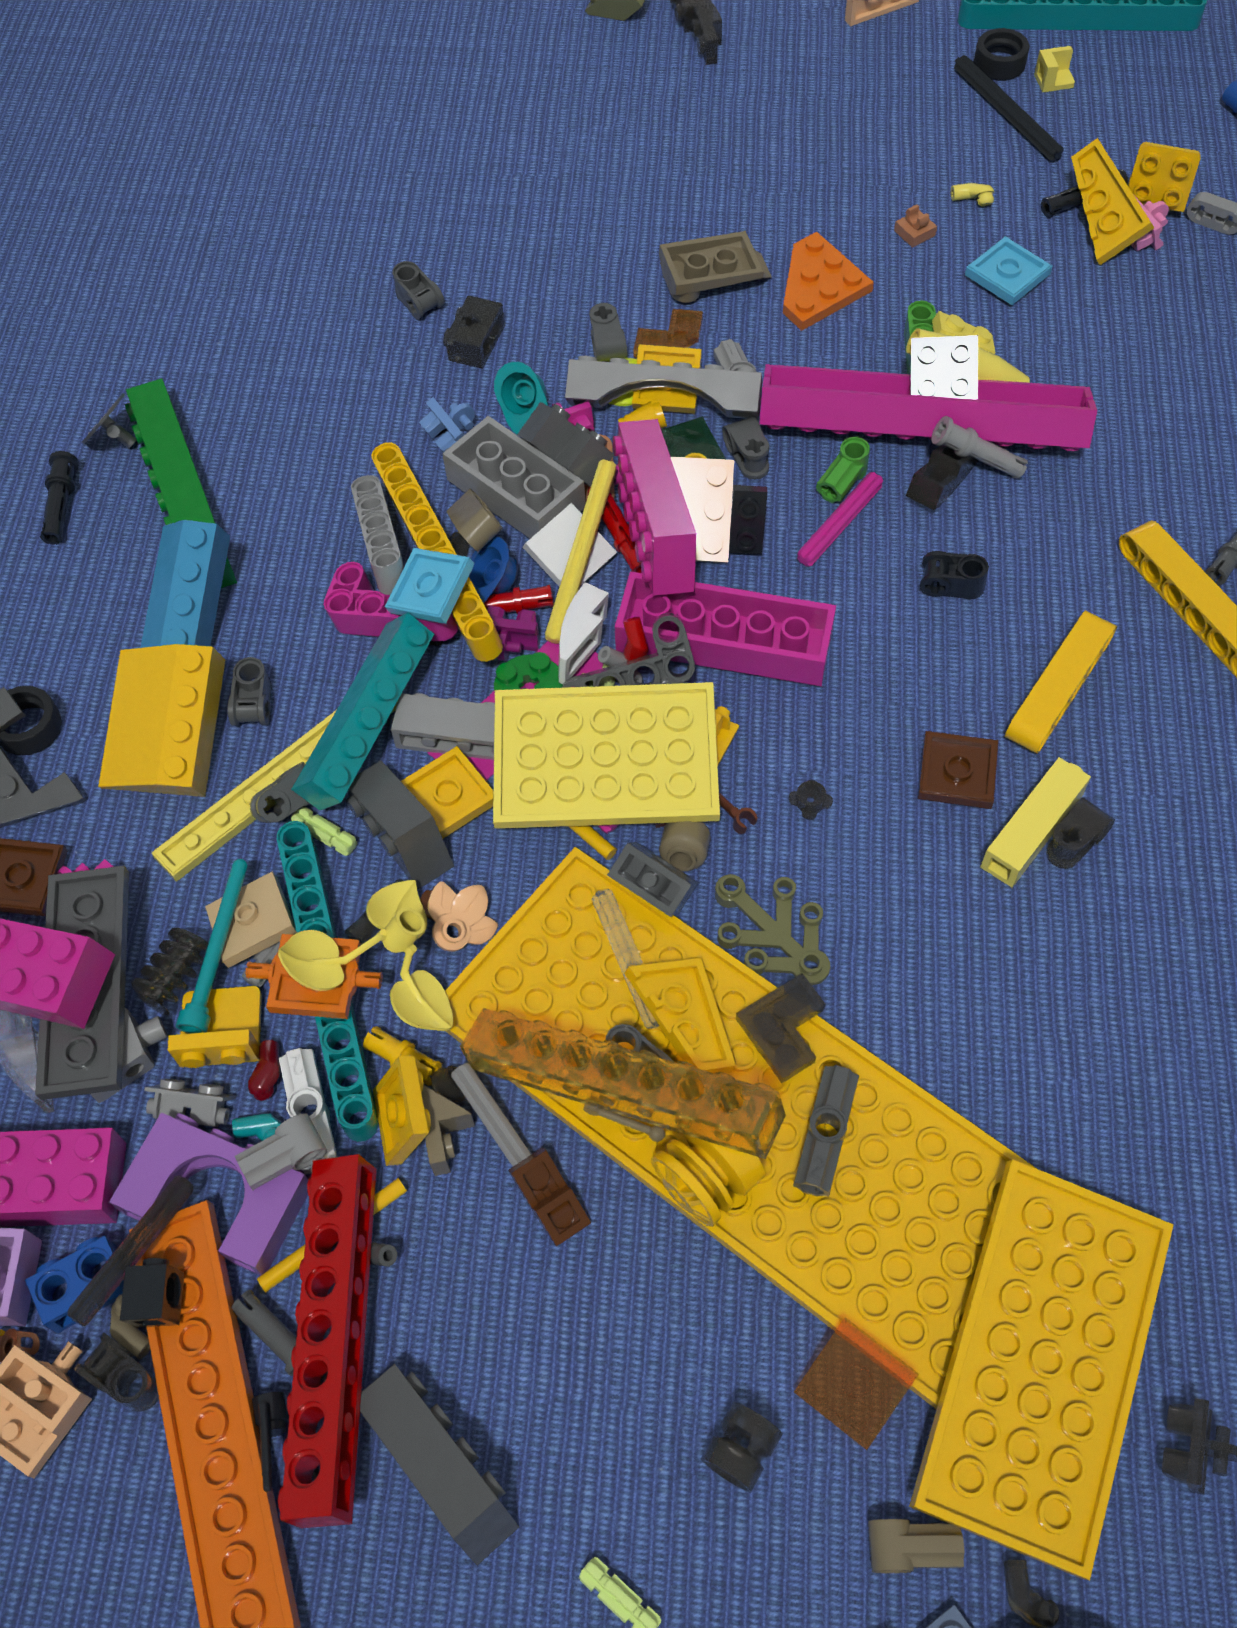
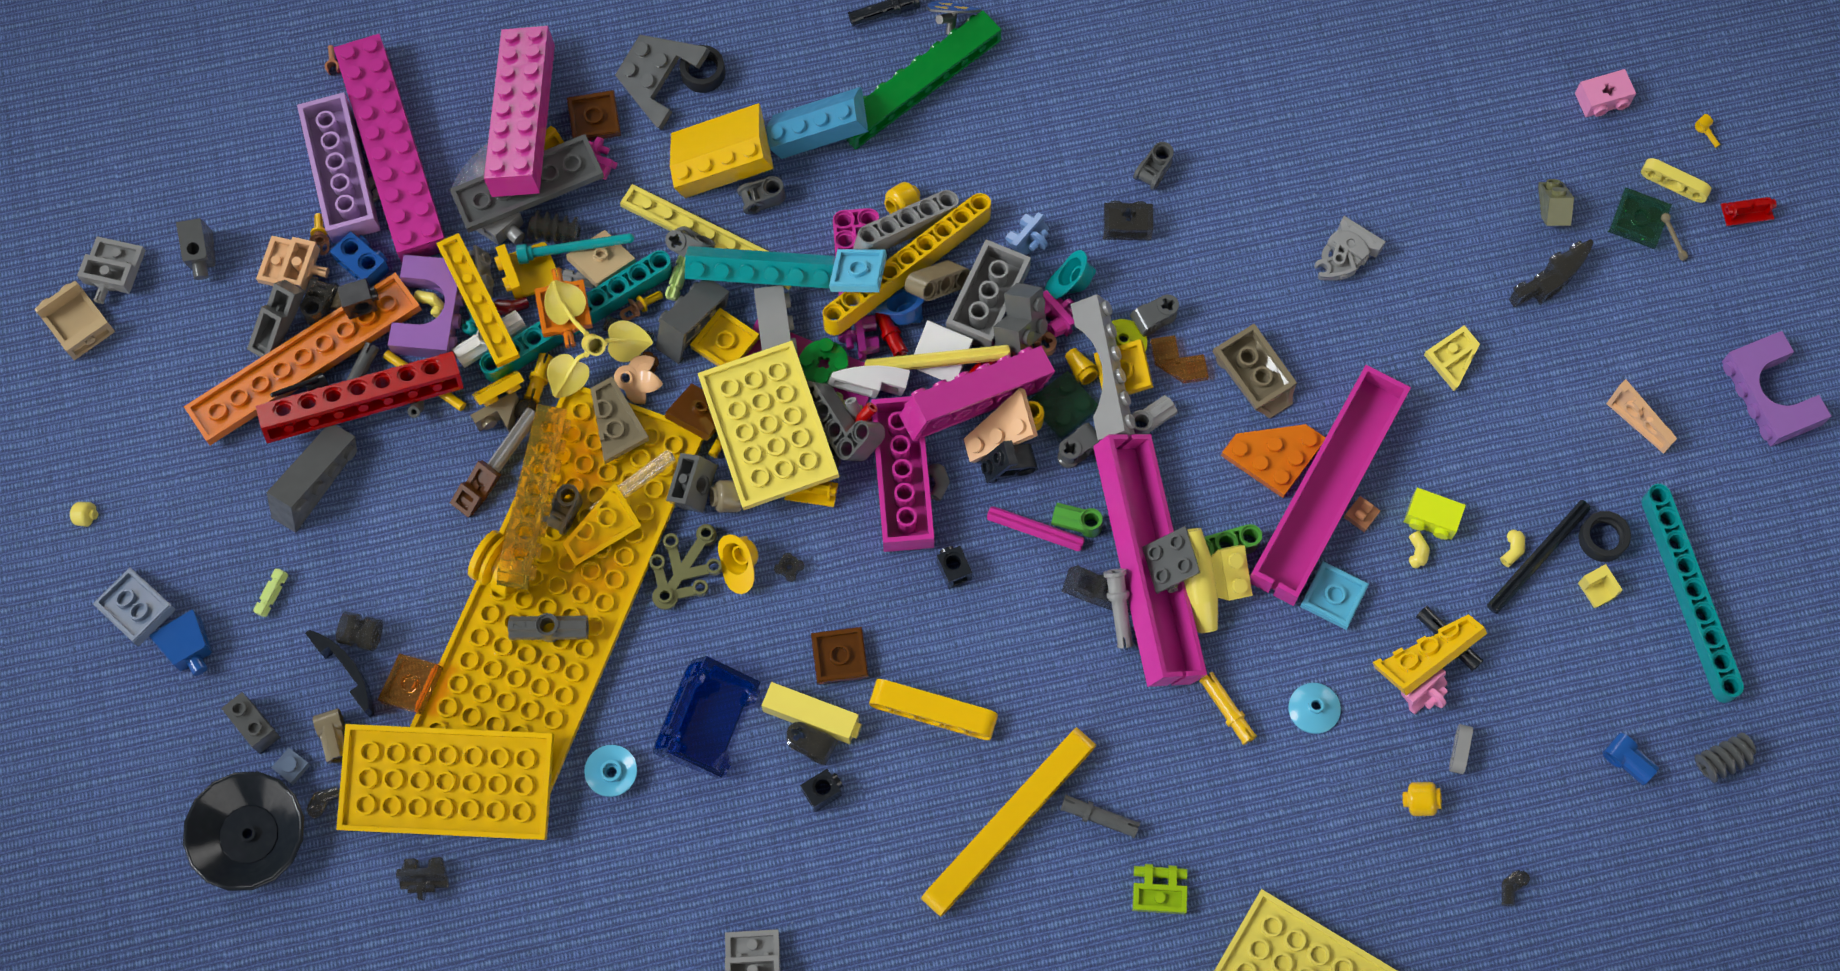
camera: 70 degrees right, 10 degrees up
(120, 1458) = (275, 317): none -> dark grey slope
(130, 1250) = (379, 277): clear smoke axle -> none
(209, 1181) = (431, 299): none -> light yellow arm
(243, 1097) = (478, 300): none -> yellow plate
(292, 1146) = (455, 336): light grey piece -> none
(337, 540) = (901, 197): none -> yellow head
(344, 890) = (640, 304): none -> piece
(520, 953) = (616, 421): none -> dark tan wing
(543, 852) = (692, 413): none -> reddish brown plate
(597, 158) = (1350, 249): none -> light grey piece
(736, 814) = (765, 523): copper hand -> none
(758, 112) = (1453, 356): none -> light yellow wing
(772, 1026) = (608, 580): clear smoke plate -> none
(794, 853) = (738, 560): none -> yellow piece
(854, 1472) = (361, 692): none -> black slope
(869, 609) = (957, 576): none -> black brick
(880, 233) = (1329, 485): none -> dark pink piece
(937, 167) = (1434, 514): none -> neon yellow brick
(956, 576) = (1003, 613): black piece -> none
(995, 121) = (1517, 548): none -> light yellow arm
(1008, 961) = (705, 716): none -> clear blue windscreen
(1078, 1090) = (609, 758): none -> medium azure dish
(1136, 325) = (1314, 720): none -> medium azure dish
(1137, 390) = (1229, 710): none -> yellow pin
(1149, 849) = (817, 800): none -> black brick
(1164, 174) = (1467, 693): yellow bracket -> none

